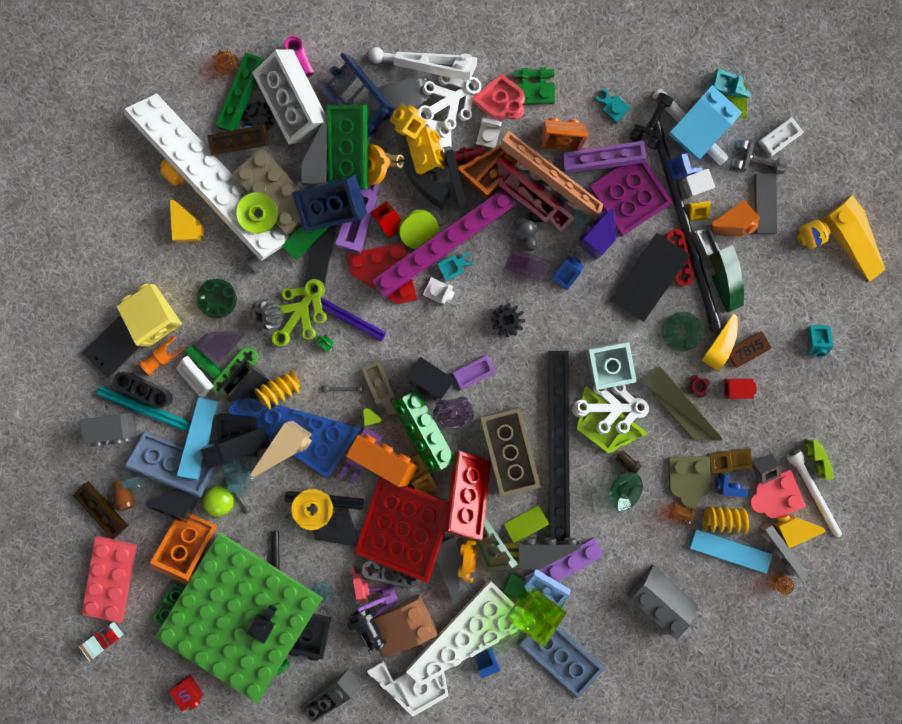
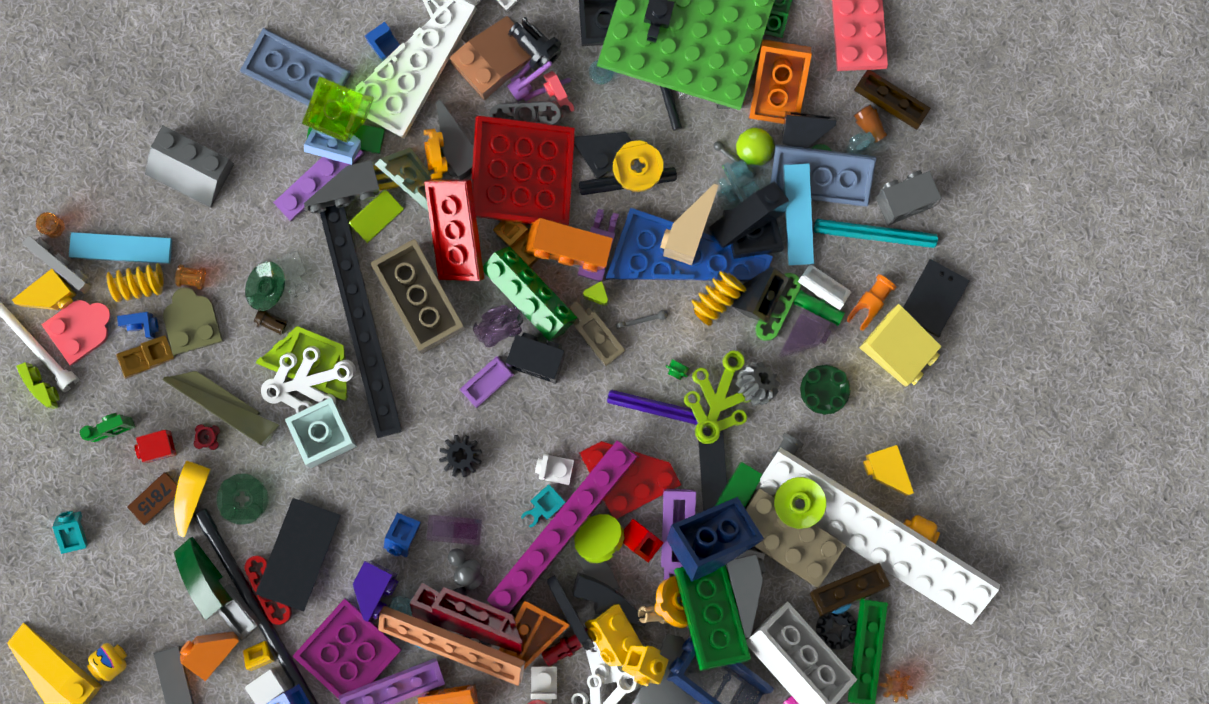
camera: 165 degrees right, 5 degrees down
(133, 389) = (893, 250): black beam -> none
(766, 468) = (100, 357): dark grey plate -> none
(771, 413) = (110, 427): none -> green plate

